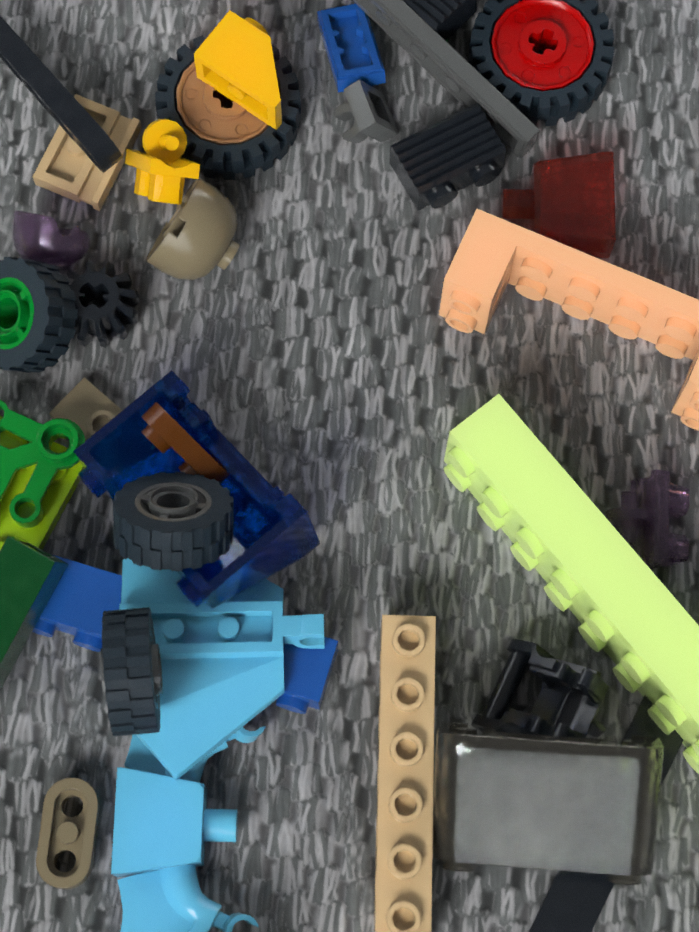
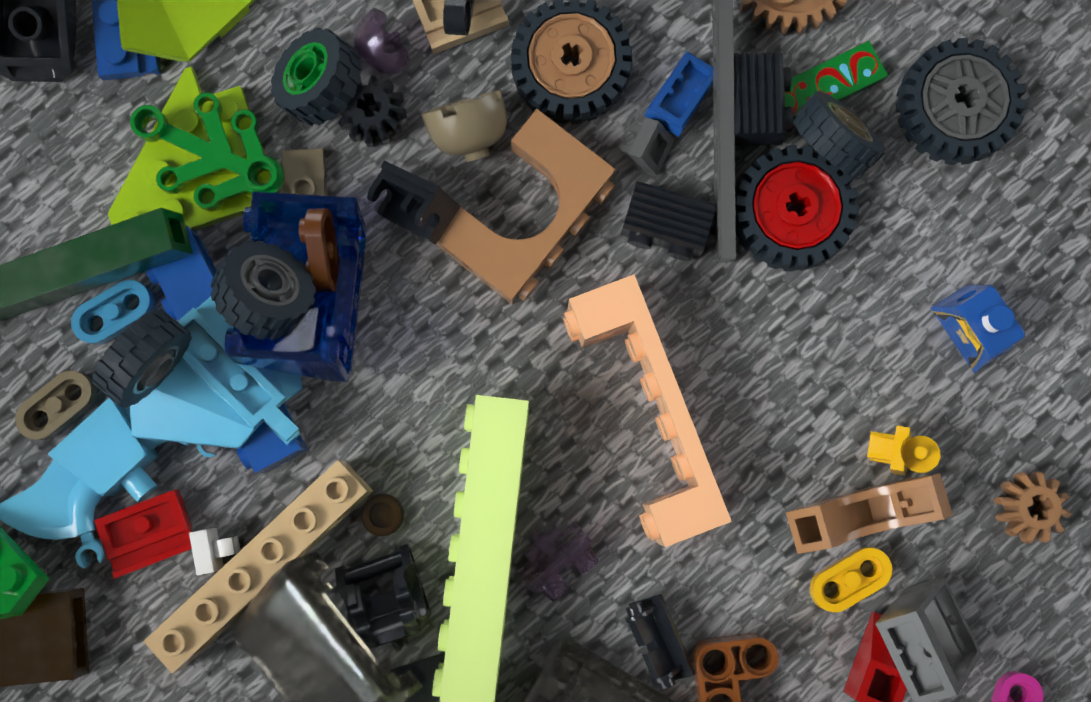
camera: 45 degrees right, 10 degrees up
(38, 700) = (113, 309): none -> dark azure plate
(162, 169) = (489, 61): yellow hips -> none
(217, 340) = (413, 202): none -> black hinge
(241, 66) = (594, 45): yellow slope -> none
(271, 863) = (145, 533): none -> red plate
(335, 195) = (579, 181): none -> medium nougat arch
(346, 817) = (209, 550): none -> white tile
(463, 638) = (382, 514): none -> dark brown tile
(569, 202) = (709, 319): clear red torso -> none

